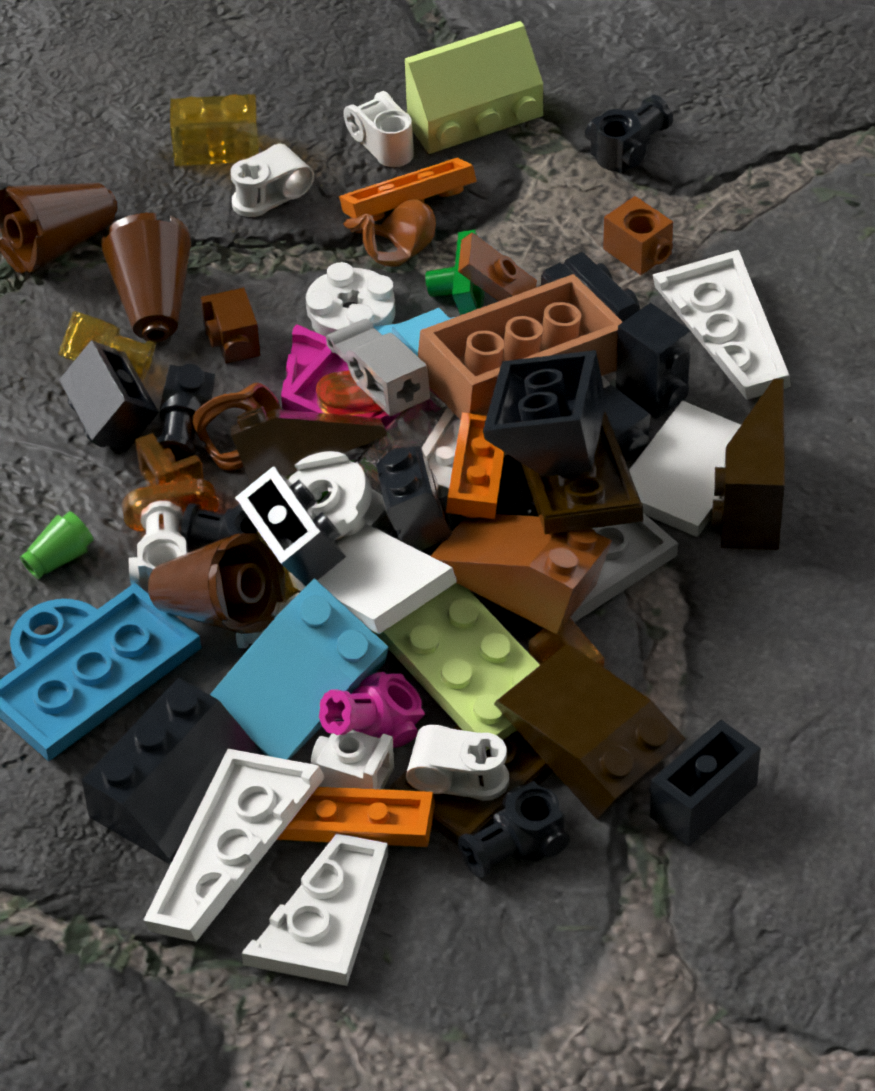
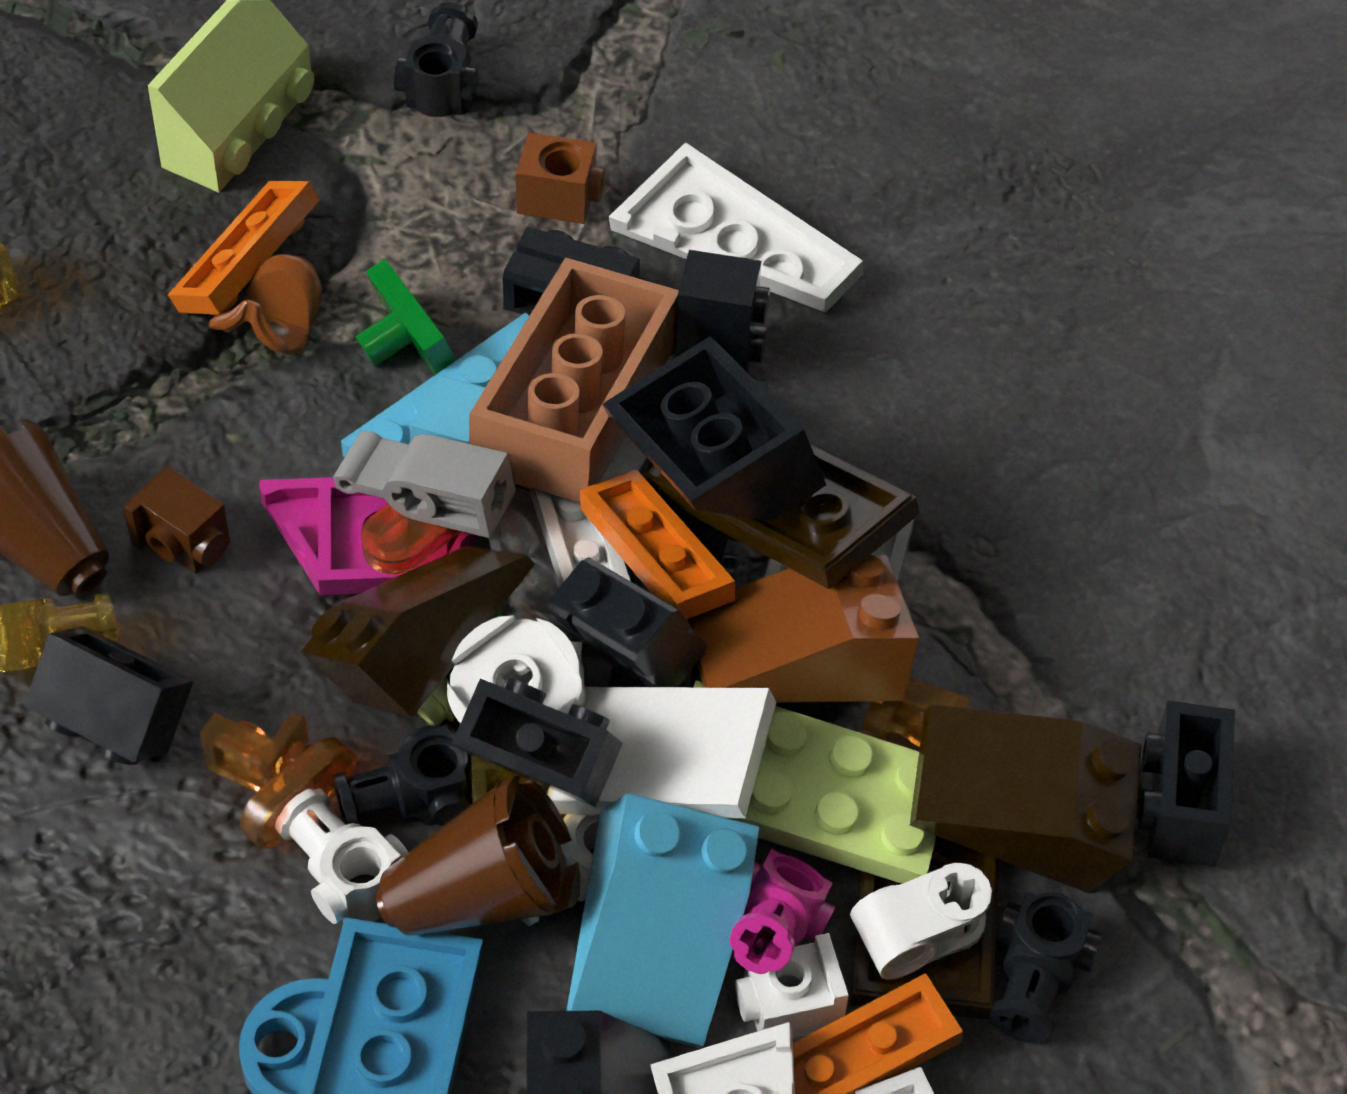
camera: 40 degrees left, 5 degrees up
(57, 544) = (198, 923): bright green cone -> none
(183, 394) = (214, 651): black connector -> none
(247, 399) = (295, 606): dark orange piece -> none
(272, 178) = (65, 316): white piece -> none
(345, 285) = (286, 393): white plate -> none
(382, 129) = (153, 186): white piece -> none
(491, 270) = (449, 301): dark orange plate -> none
(679, 467) = (844, 404): white tile -> none
(753, 477) = (946, 393): dark brown slope -> none

